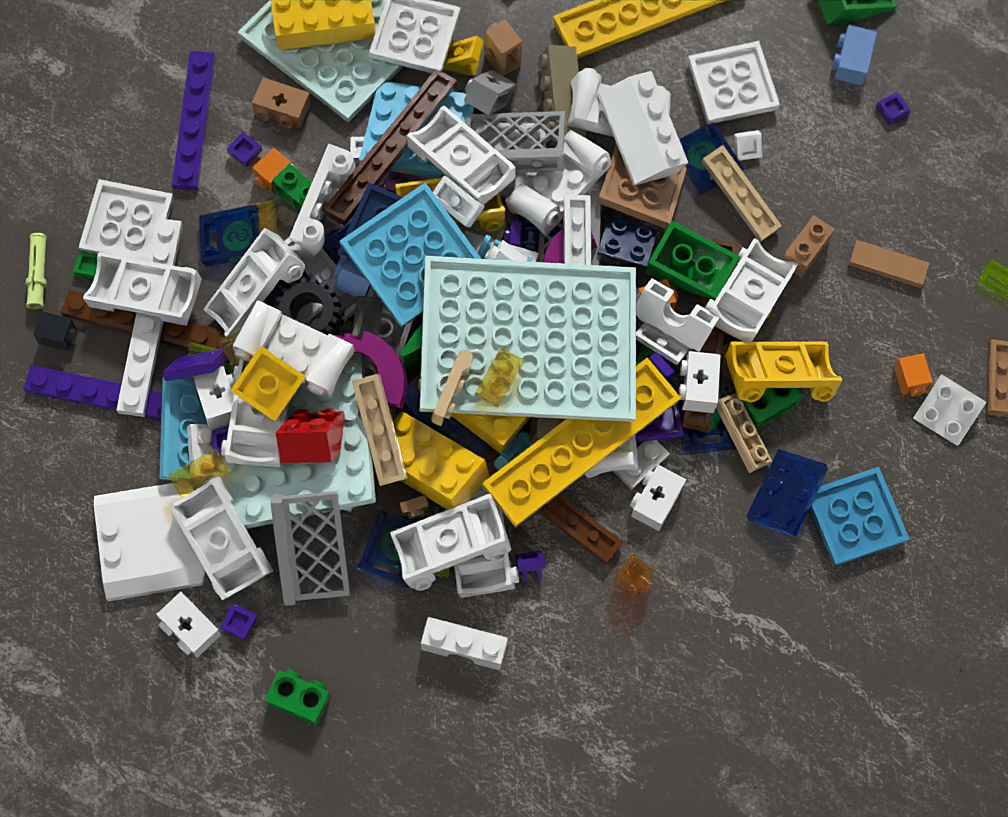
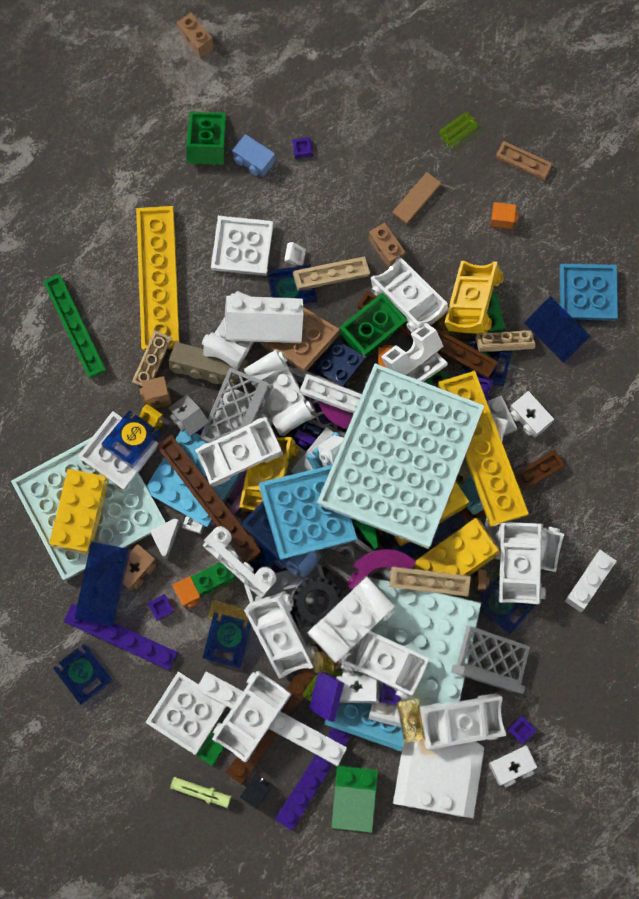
camera: 60 degrees left, 5 degrees up
(86, 447) = (354, 799): none -> green slope
(136, 91) = (80, 672): none -> clear blue container
(246, 71) = (102, 584): none -> clear blue plate
(268, 383) = (373, 646): yellow plate -> none
(294, 703) = (593, 710): green brick -> none
(310, 436) = (418, 630): red slope -> none
(331, 124) = (165, 536): none -> white slope
(437, 38) = (132, 434): none -> clear blue container
(453, 386) = (424, 518): tan hinge -> none
(458, 201) = (275, 466): white plate -> none
(499, 377) = (427, 484): clear yellow plate -> none
(530, 561) = (547, 515): dark purple tile -> none
(558, 32) = (157, 348): none -> tan tile
(634, 576) = (582, 451): clear orange brick -> none
(662, 366) = (446, 375): dark purple tile -> none
(701, 396) = (459, 346): white brick -> none
(949, 410) = (536, 202): white hinge -> none

